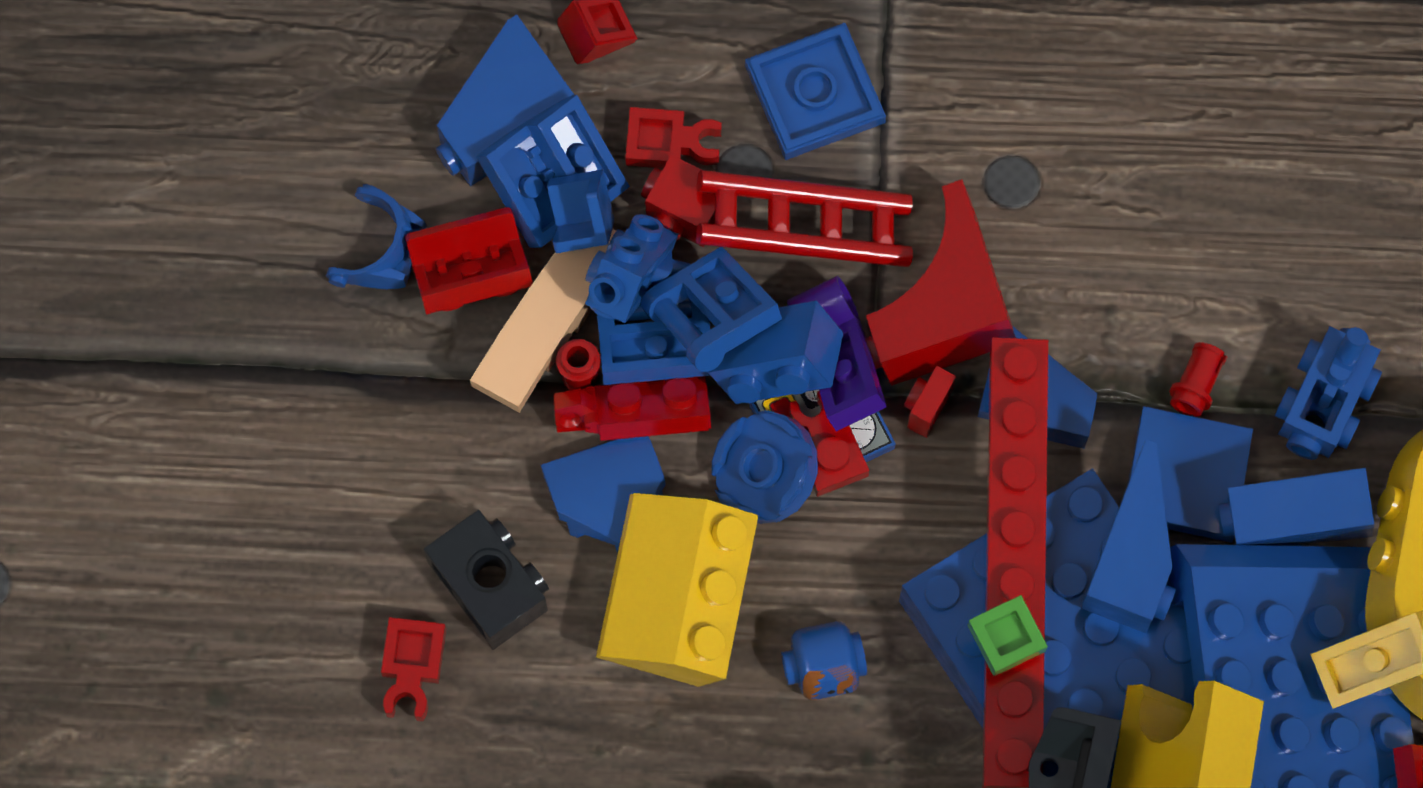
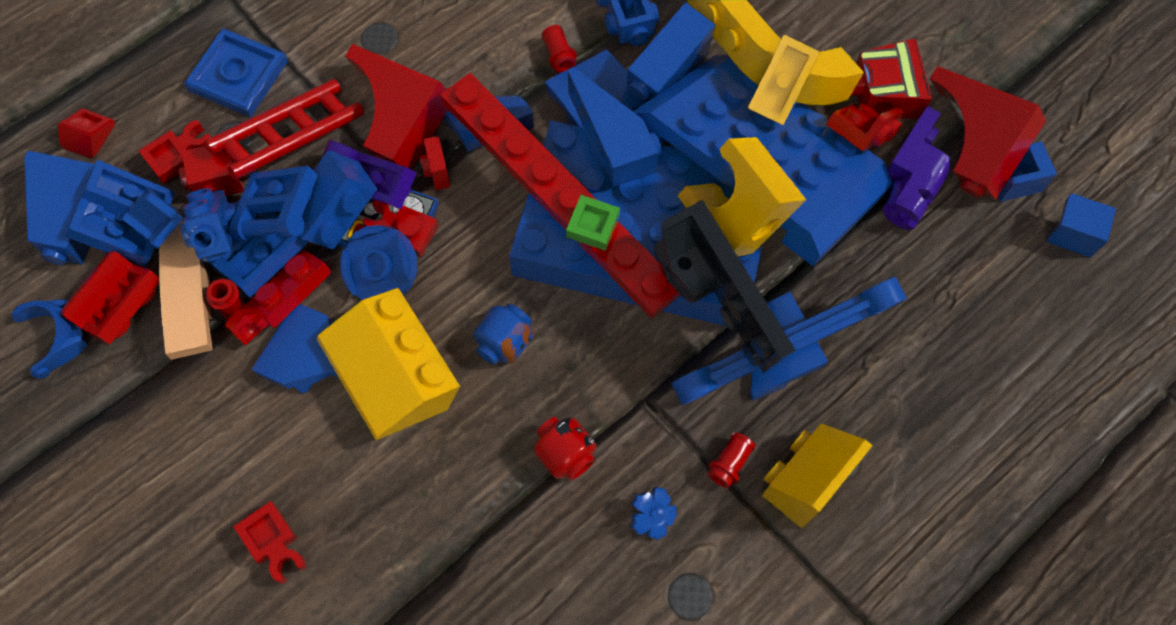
camera: 45 degrees left, 5 degrees down
(496, 610) = (248, 449): black brick -> none

